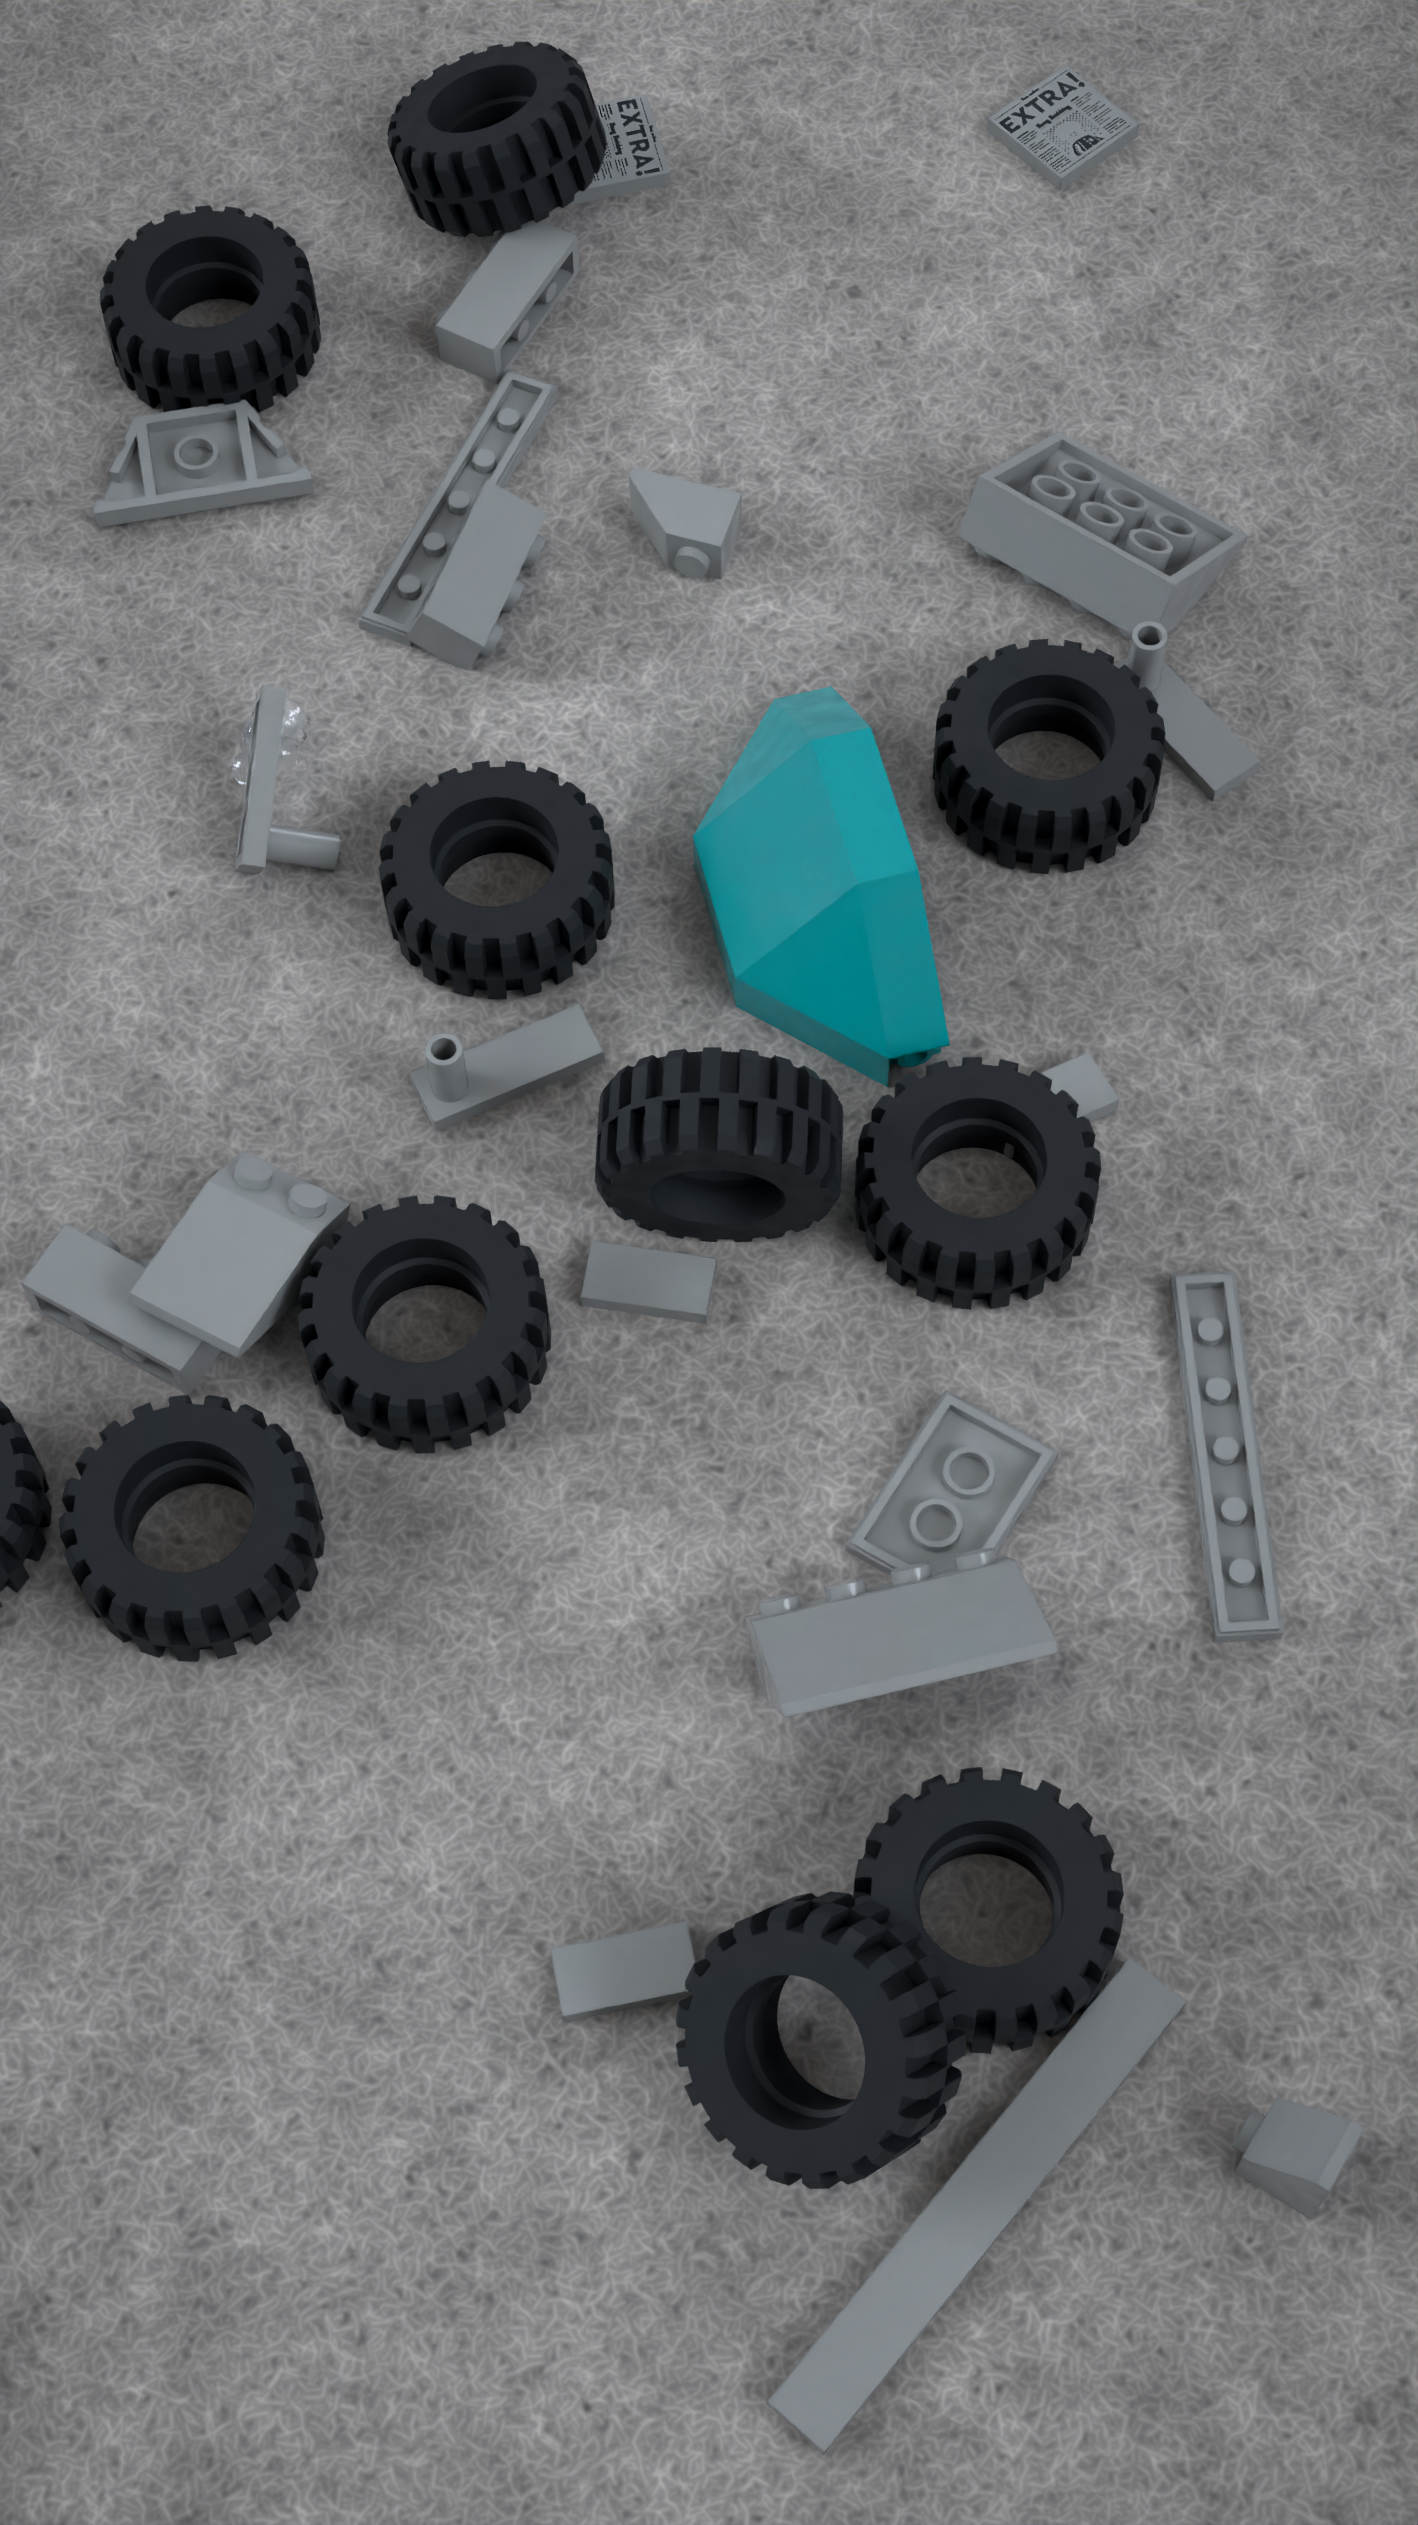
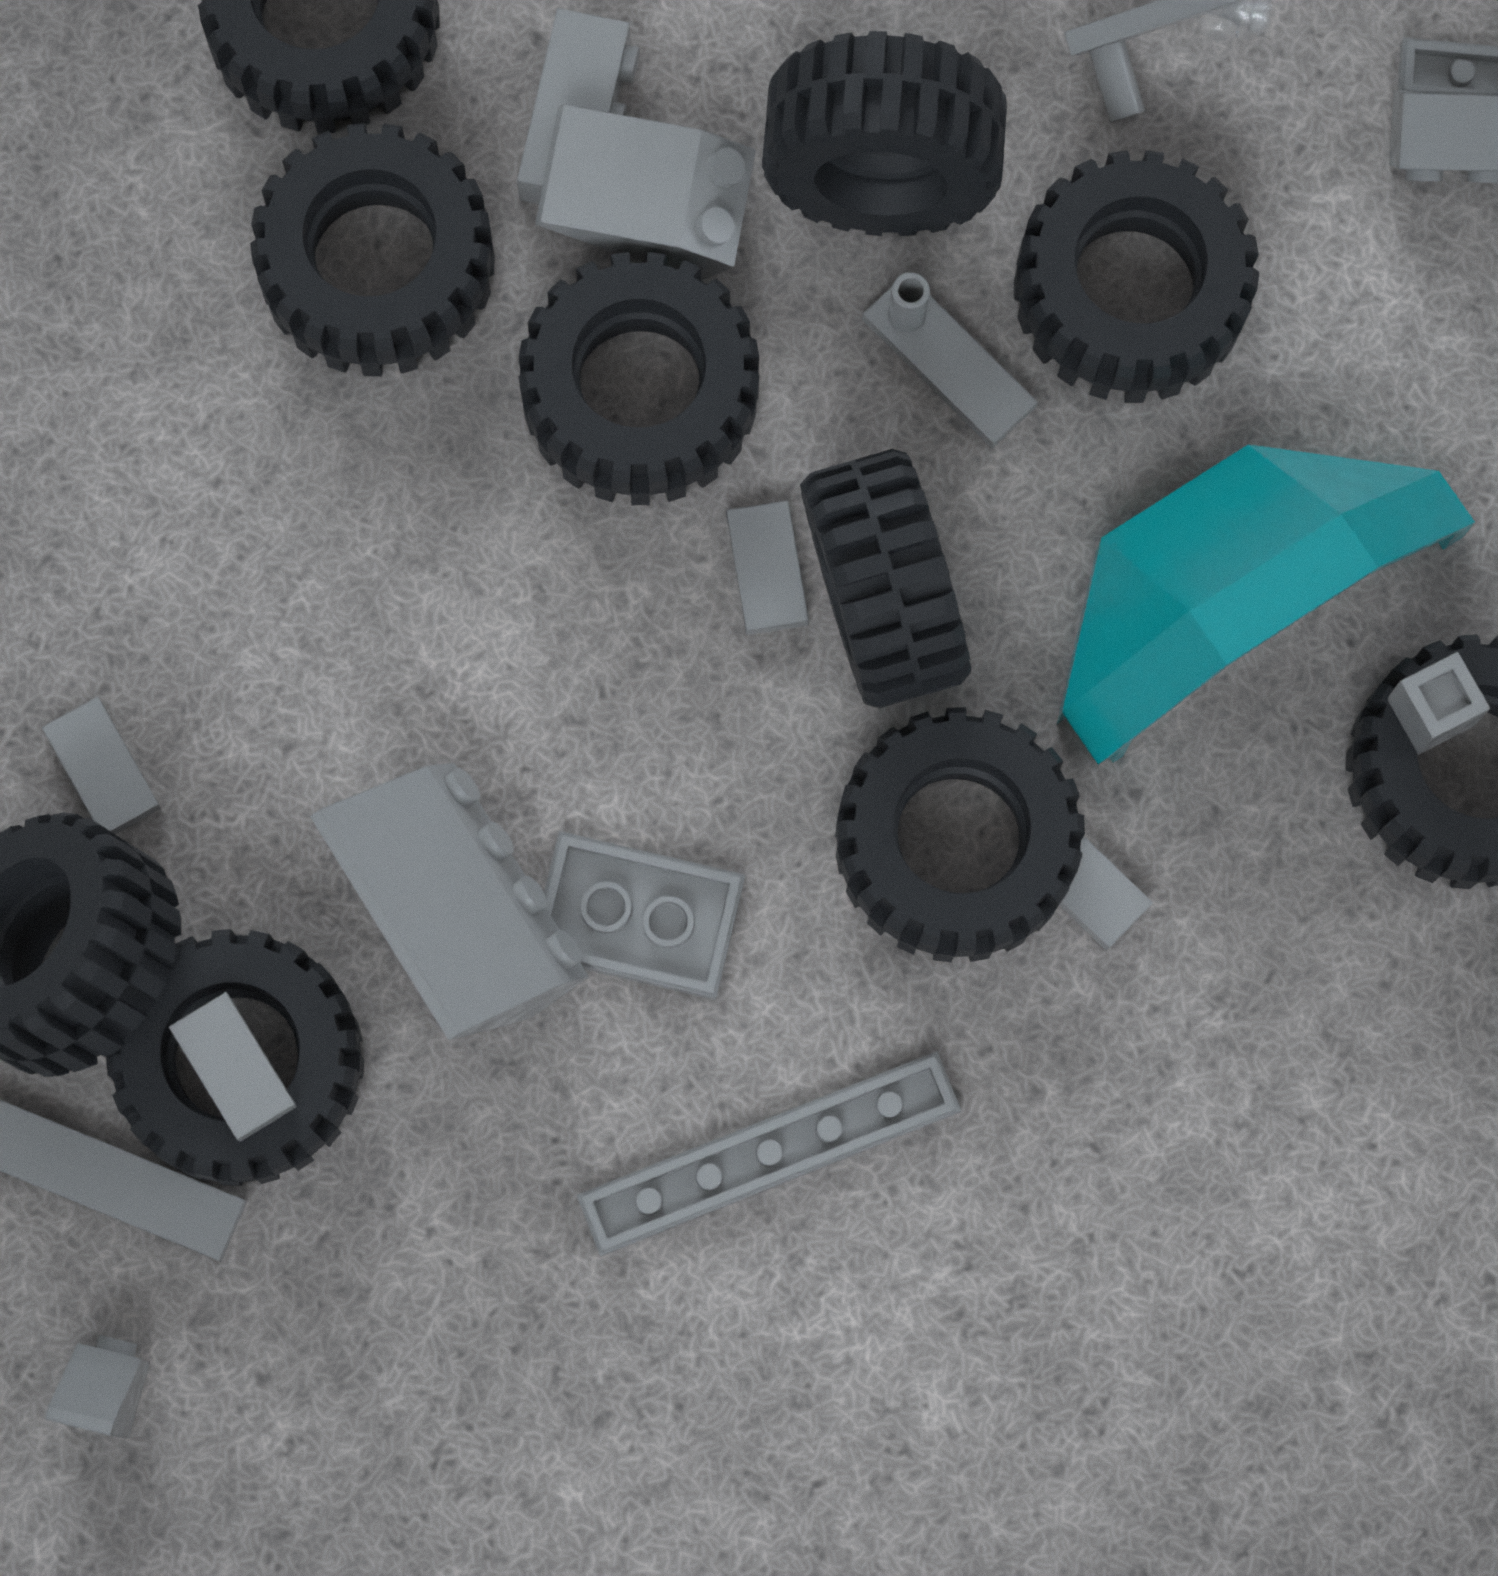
camera: 65 degrees right, 15 degrees up
(285, 1018) = (884, 134): none -> black tyre
(1005, 733) = (1438, 703): none -> light grey panel
(1010, 1889) = (232, 1067): none -> light grey tile

